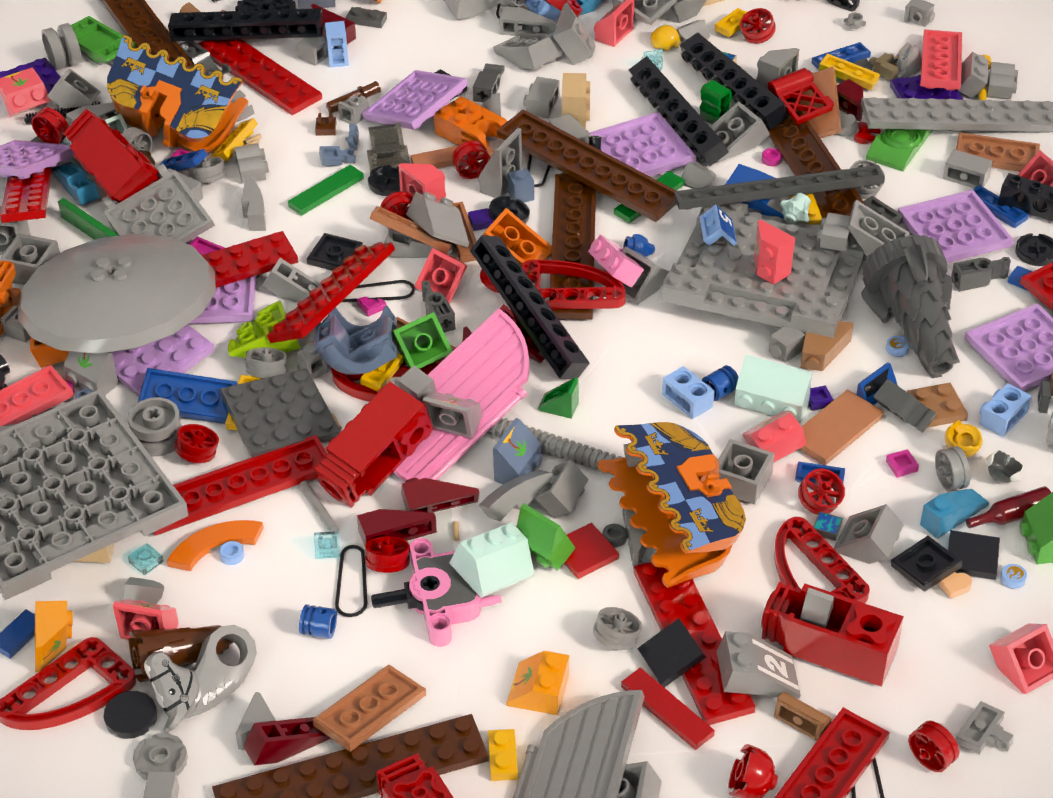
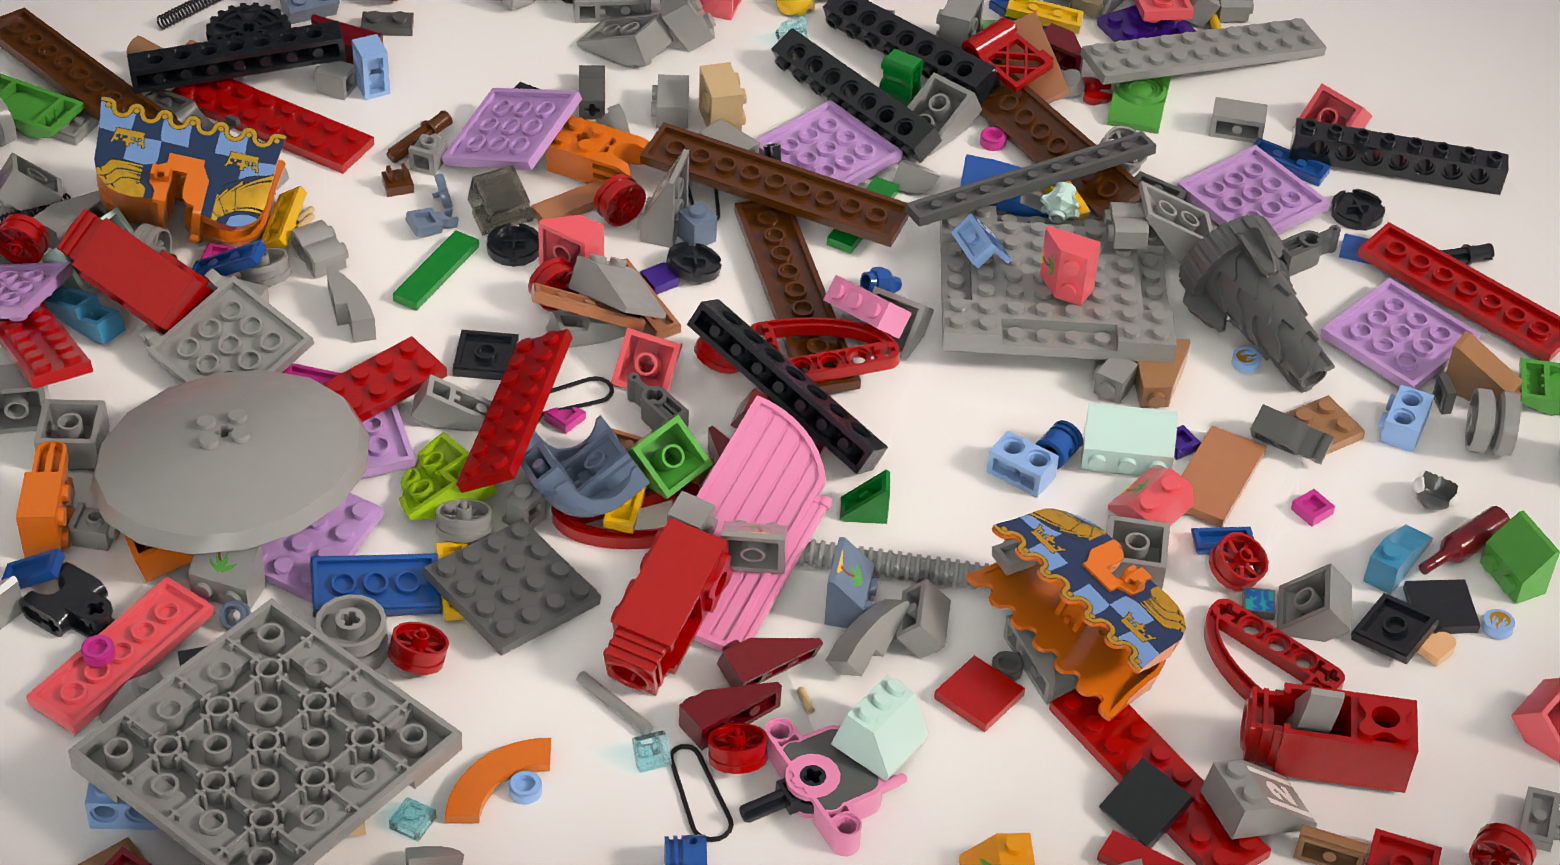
camera: 20 degrees left, 0 degrees up
(83, 221) = (127, 369): green tile -> none
(248, 480) = (520, 676): red plate -> none
(519, 238) = (709, 283): orange slope -> none
(545, 538) = (938, 686): bright green slope -> none
(617, 628) = (1067, 786): light grey wheel -> none
(870, 385) = (1244, 412): blue slope -> none
(952, 468) = (1380, 500): light grey wheel -> none
(965, 436) = (1376, 465): yellow hair -> none
(1004, 153) = (1279, 91): nougat tile -> none

